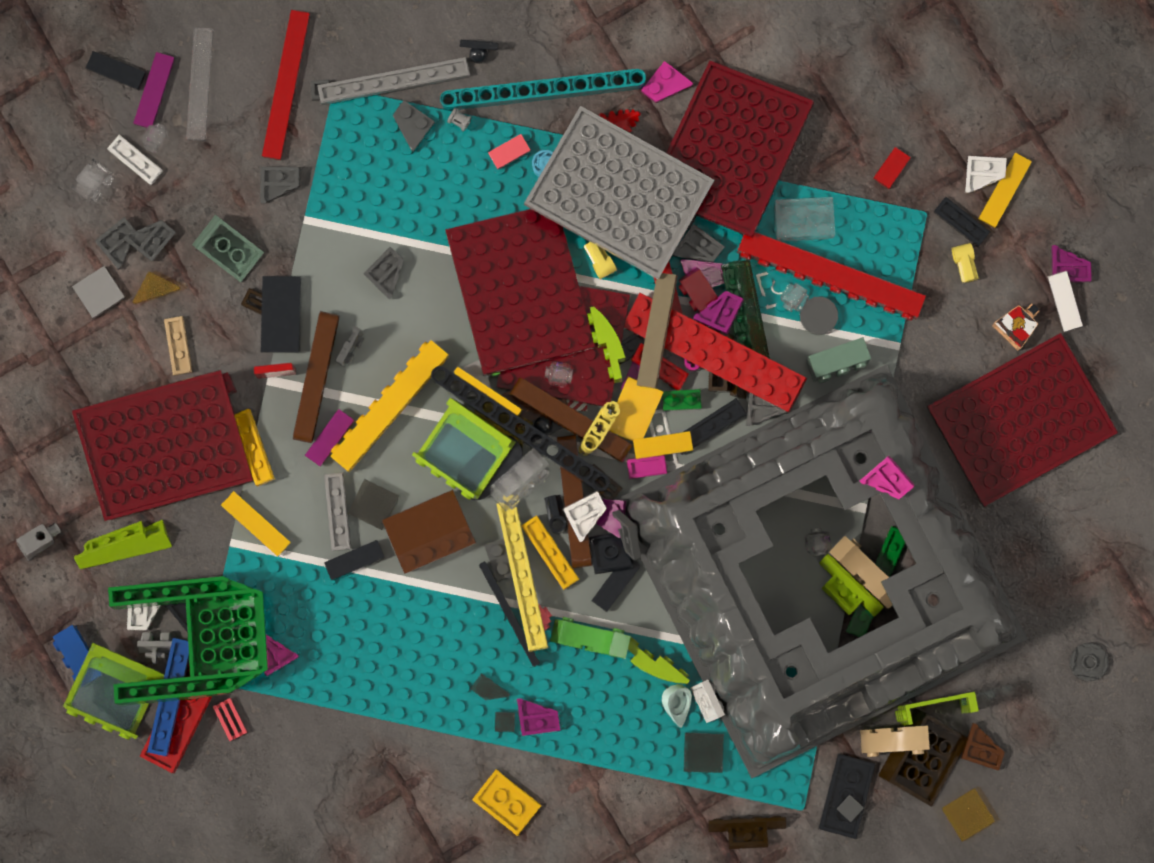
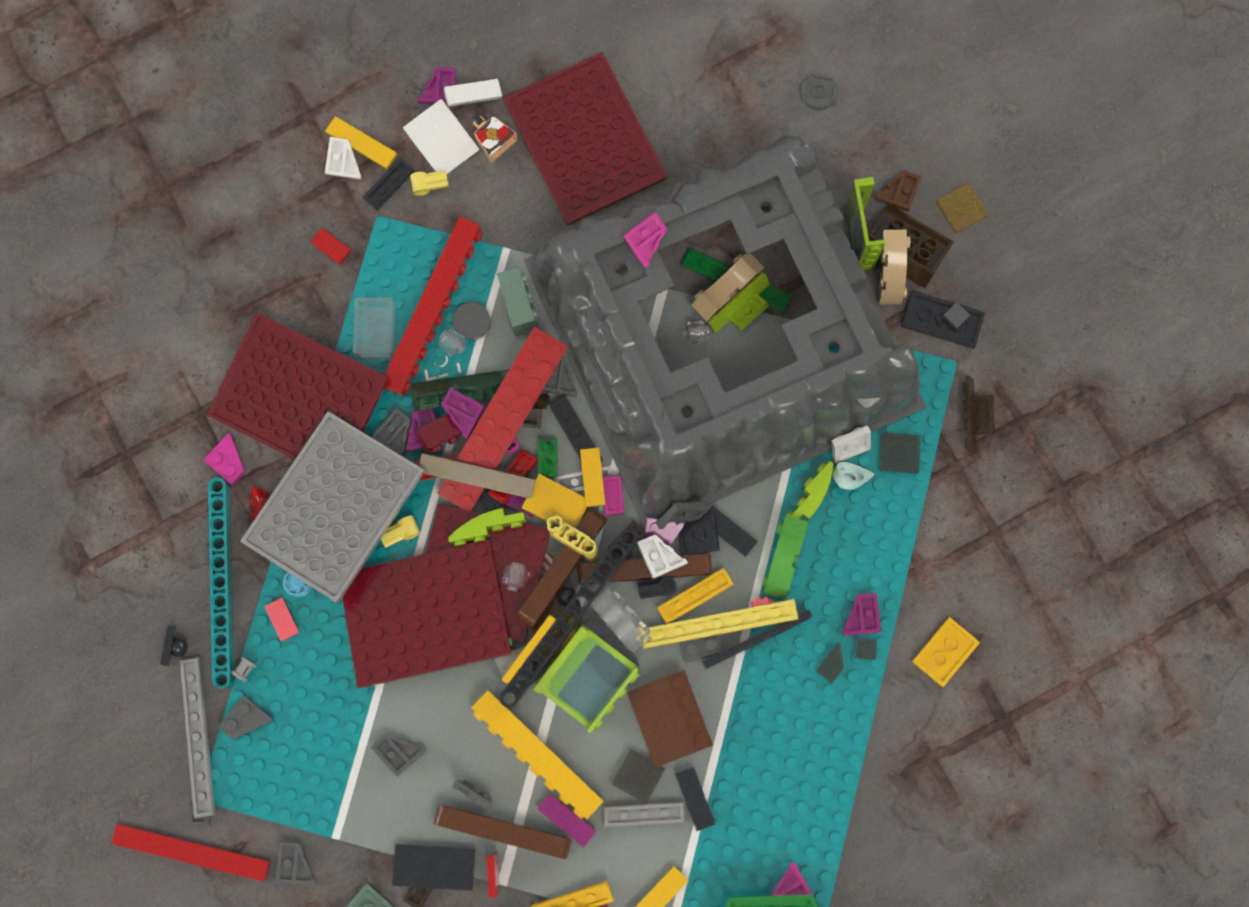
camera: 85 degrees left, 5 degrees down
(1014, 271) = (441, 137): none -> white sticker

